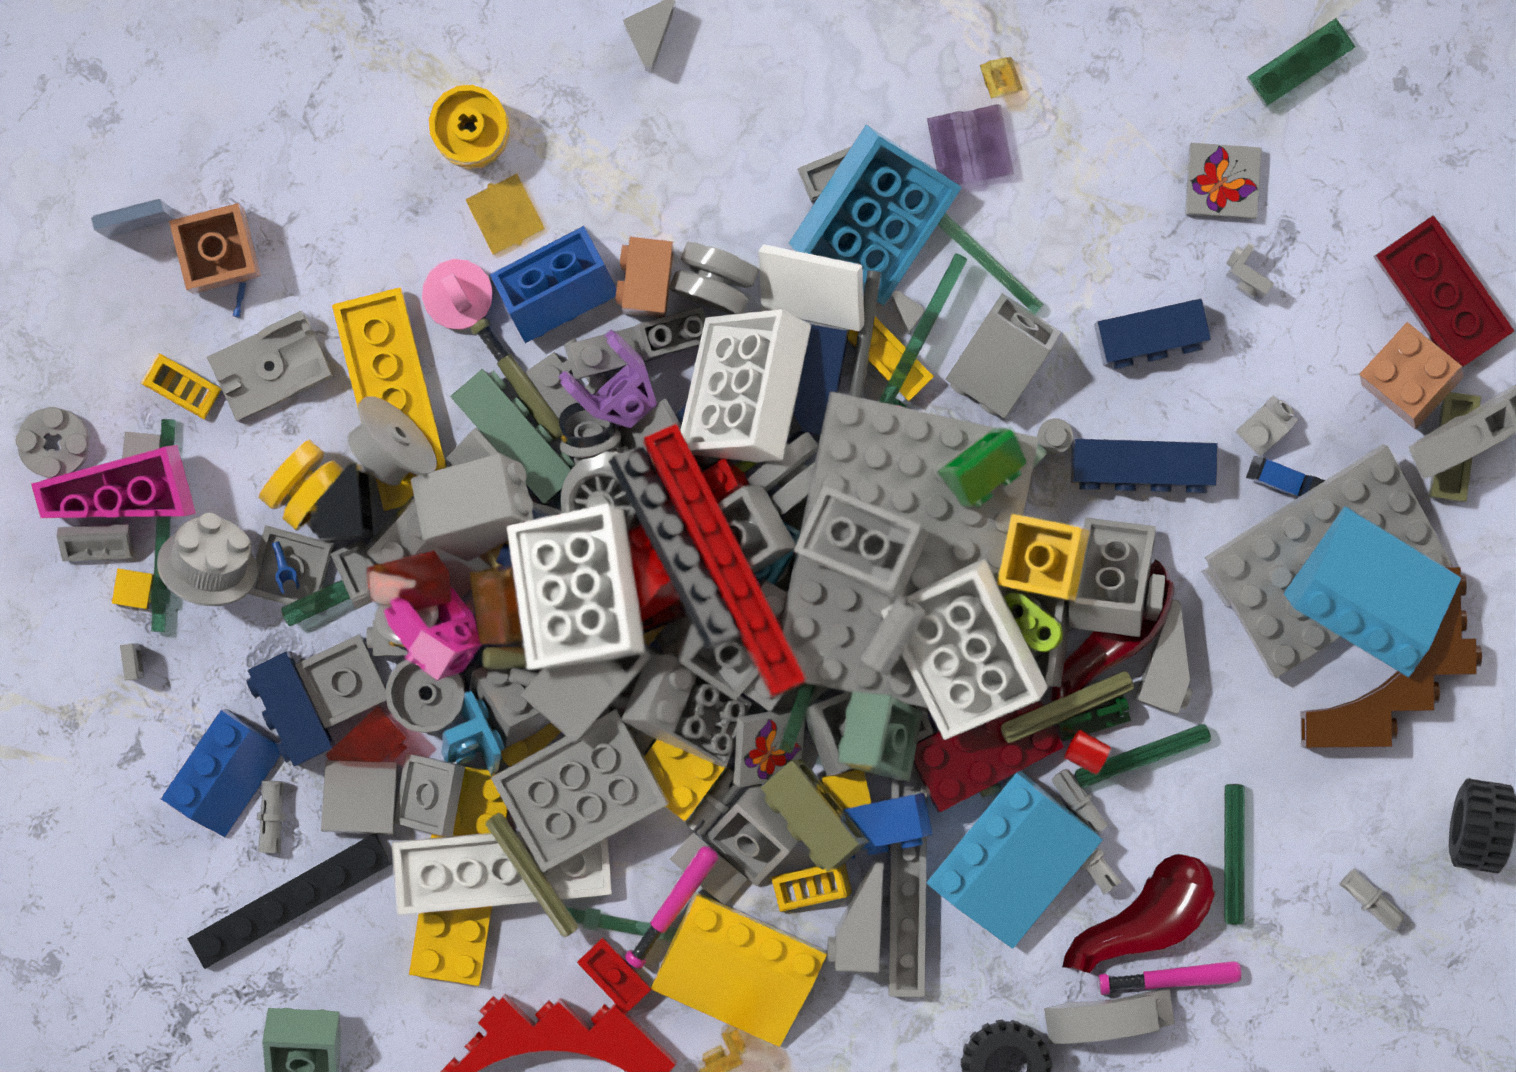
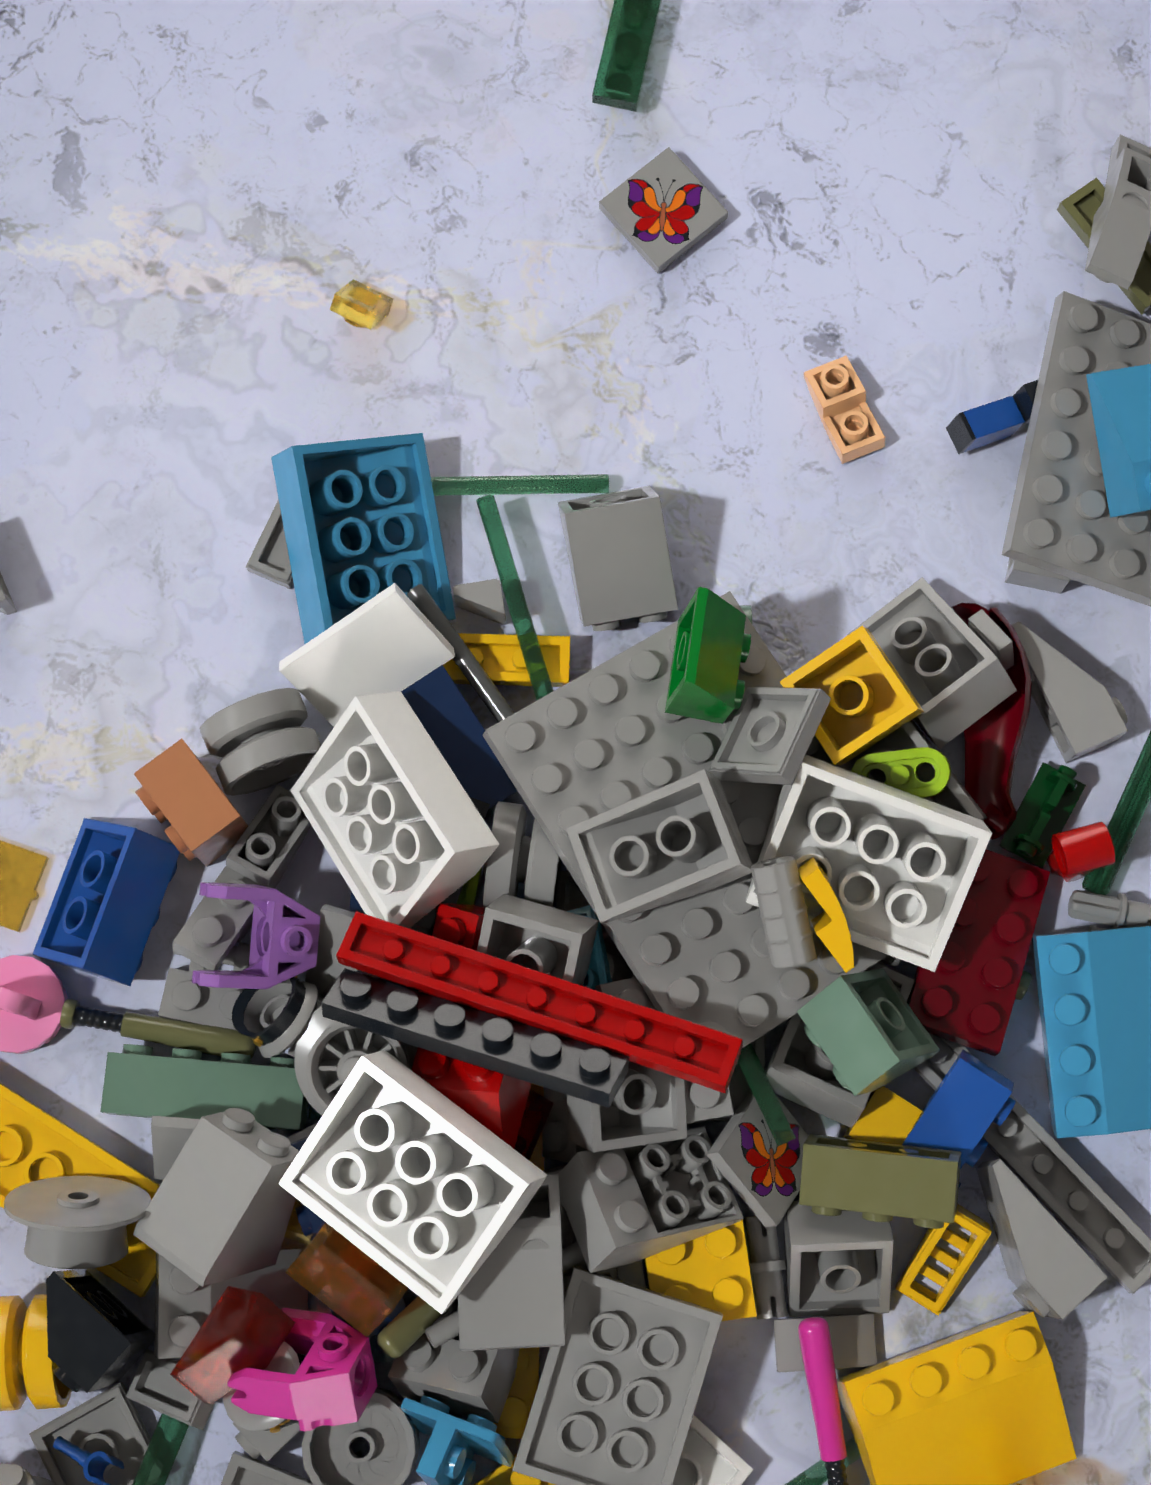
camera: 40 degrees left, 10 degrees down
(912, 664) = (831, 923): none -> yellow slope
(971, 145) = (393, 391): clear purple slope -> none
(976, 537) = (770, 735): none -> light grey tile
(1055, 435) = (743, 581): light grey plate -> none
(1067, 707) = (1016, 828): olive axle -> none
(1144, 463) = (852, 529): dark blue brick -> none
(1152, 333) = (738, 403): dark blue brick -> none
(1209, 392) = (844, 410): none -> light nougat slope
(1248, 280) = (773, 272): light grey bracket -> none
(1267, 425) = (930, 388): light grey bracket -> none
(1411, 375) = (1016, 214): nougat brick -> none
(1443, 292) = (967, 122): dark red plate -> none

